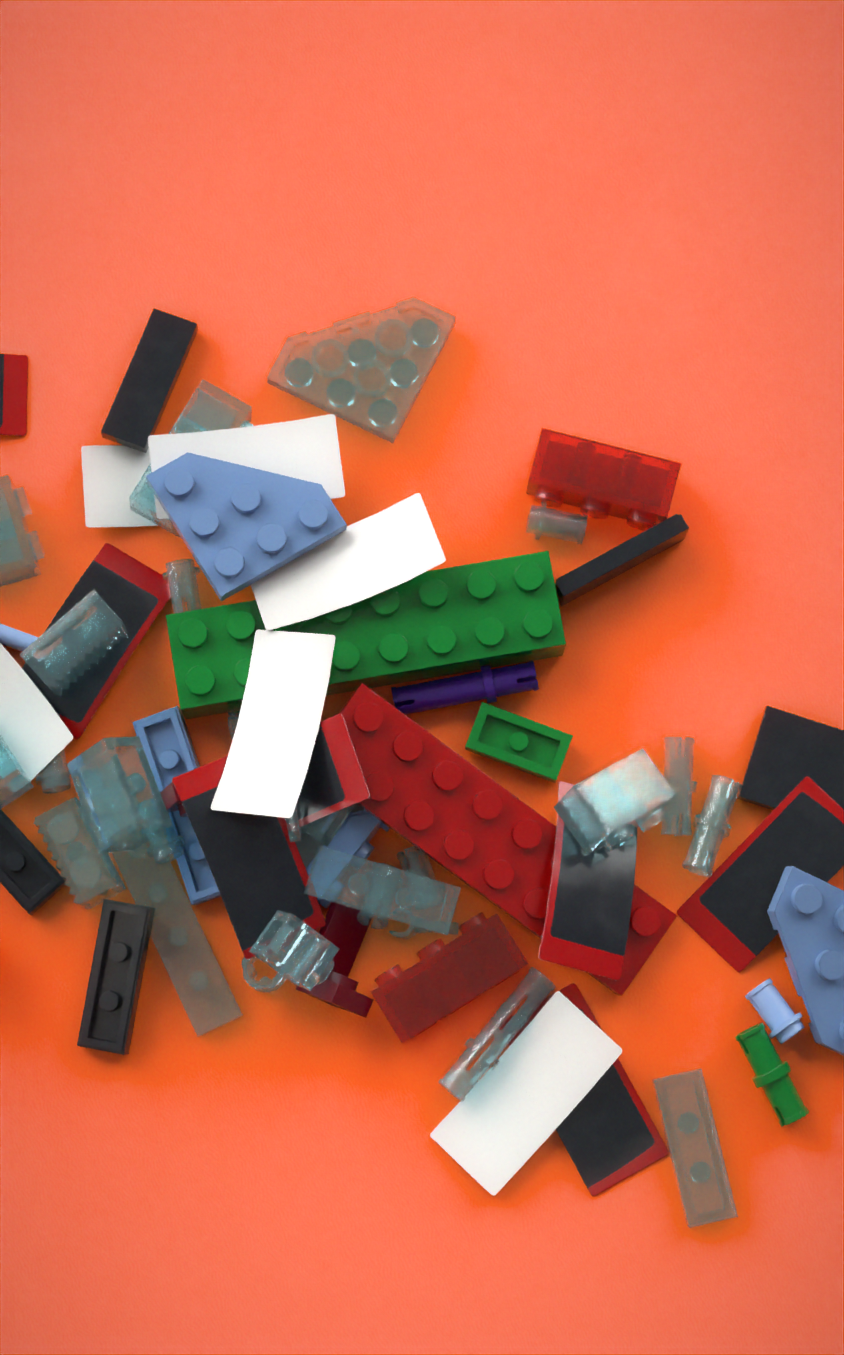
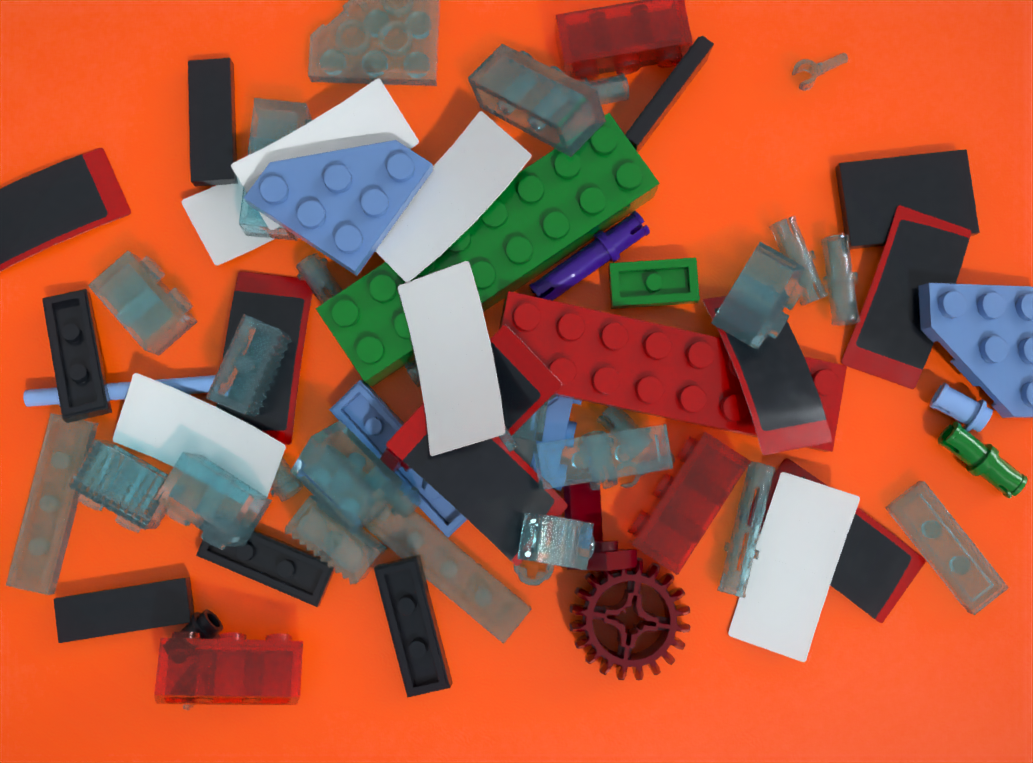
camera: 20 degrees left, 5 degrees up
(300, 1043) = (626, 640): none -> dark red gear
(483, 505) = (538, 99): none -> clear light blue brick
(792, 599) = (817, 69): none -> clear light blue hand

